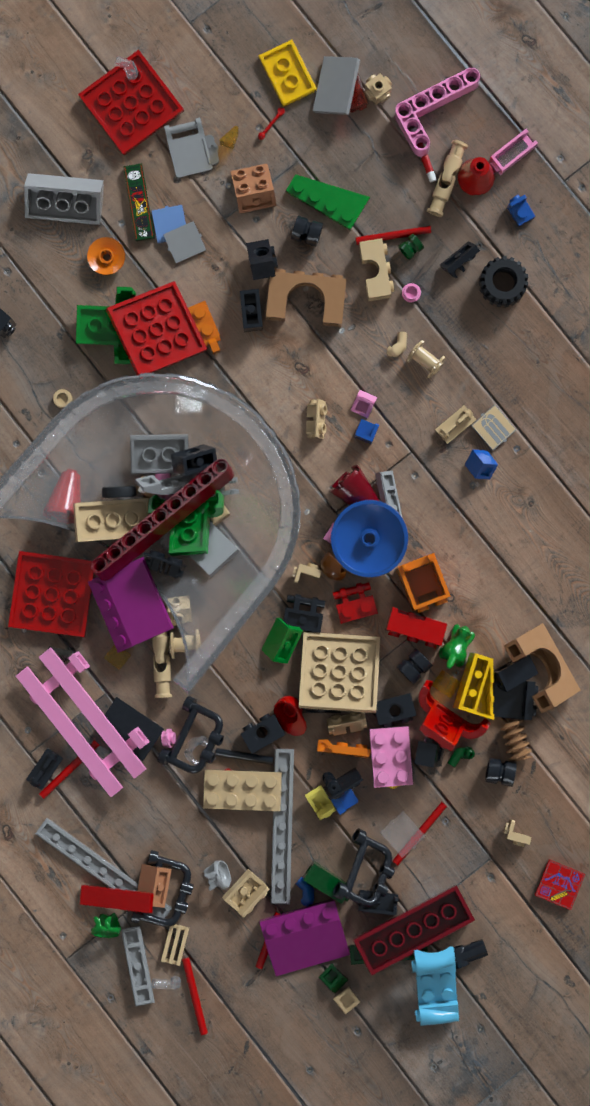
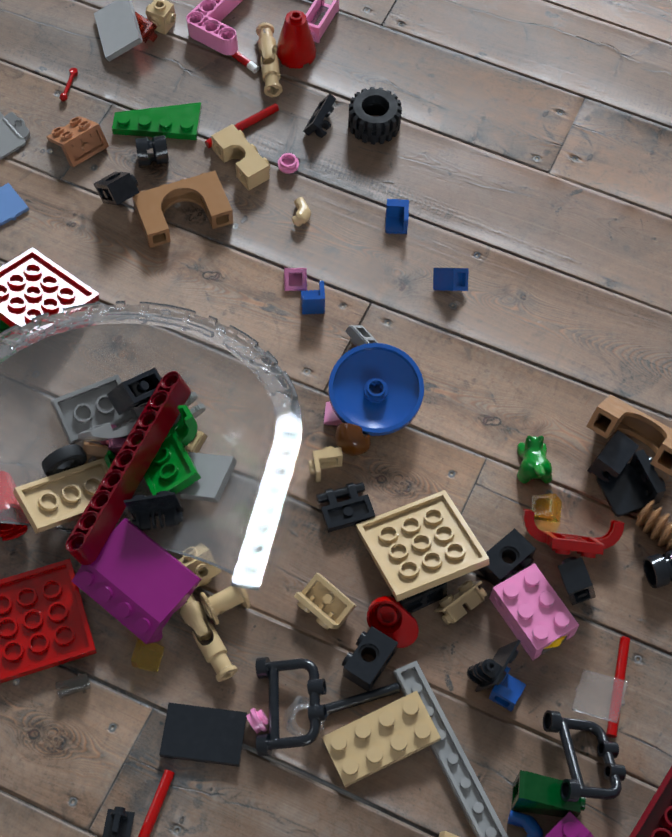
camera: 30 degrees left, 25 degrees down
(64, 676) = (91, 704): bright pink fence -> none
(184, 242) = (26, 212): light grey piece -> none
(205, 325) = (89, 275): orange hinge -> none
(230, 138) = (30, 107): clear yellow slope -> none
(251, 310) = (129, 238): black brick -> none
(252, 679) = (325, 602): none -> tan bracket
(281, 641) = (336, 544): green panel -> none
(287, 73) = (64, 40): yellow tile -> none
(317, 410) = (248, 303): tan hinge -> none
(320, 803) = (482, 705): light yellow bracket -> none
(342, 749) = (475, 631): orange hinge -> none
(353, 487) = (327, 351): dark red cone -> none
(357, 608) = (401, 476): red plate -> none
(385, 905) = (633, 791): black hinge -> none
(411, 246) = (265, 125): dark green wheel -> none
(414, 666) = (501, 501): black wheel -> none
(416, 627) = (477, 460): red wedge -> none
(422, 578) = (459, 409): orange container -> none
(425, 359) = (337, 209): tan hose -> none
(455, 424) = (402, 255): tan hinge -> none
(461, 753) = (609, 573): dark green arm -> none
(470, 387) = (397, 216): none -> blue panel
(476, 687) = (582, 491): yellow wedge -> none
(493, 427) = (442, 244): piece -> none
(520, 210) = (353, 58): blue bracket -> none

